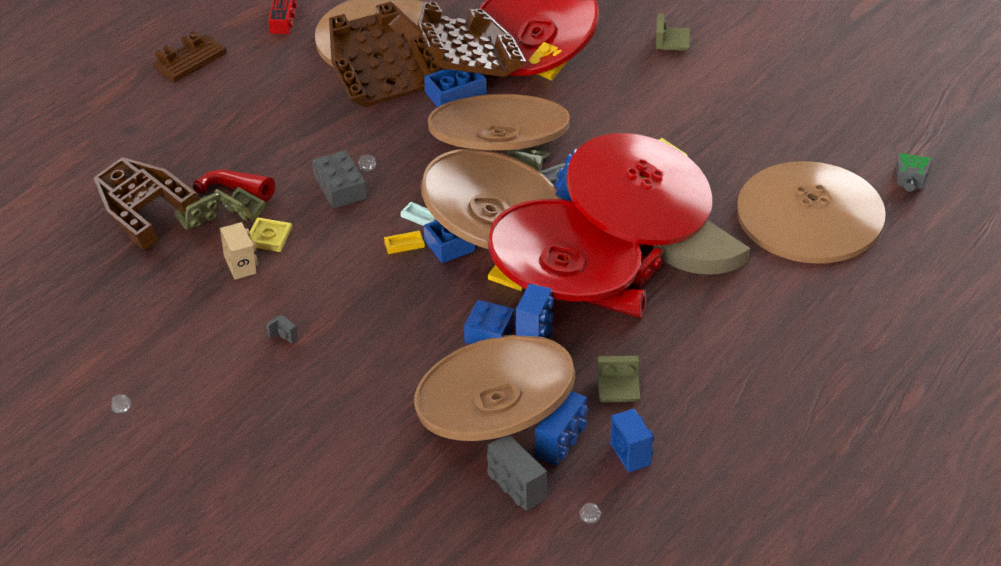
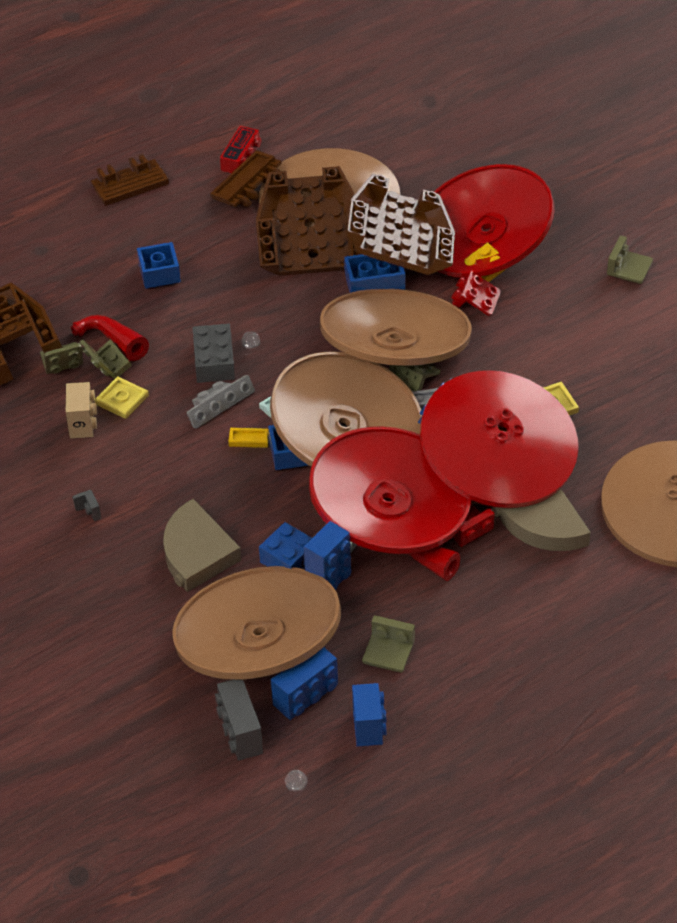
camera: 20 degrees right, 5 degrees up
(253, 117) = (158, 265): none -> blue brick
(299, 35) = (250, 174): none -> reddish brown hinge
(361, 216) = (218, 399): none -> light grey bracket
(403, 341) = (197, 546): none -> dark tan brick
(550, 81) = (477, 293): none -> red bracket

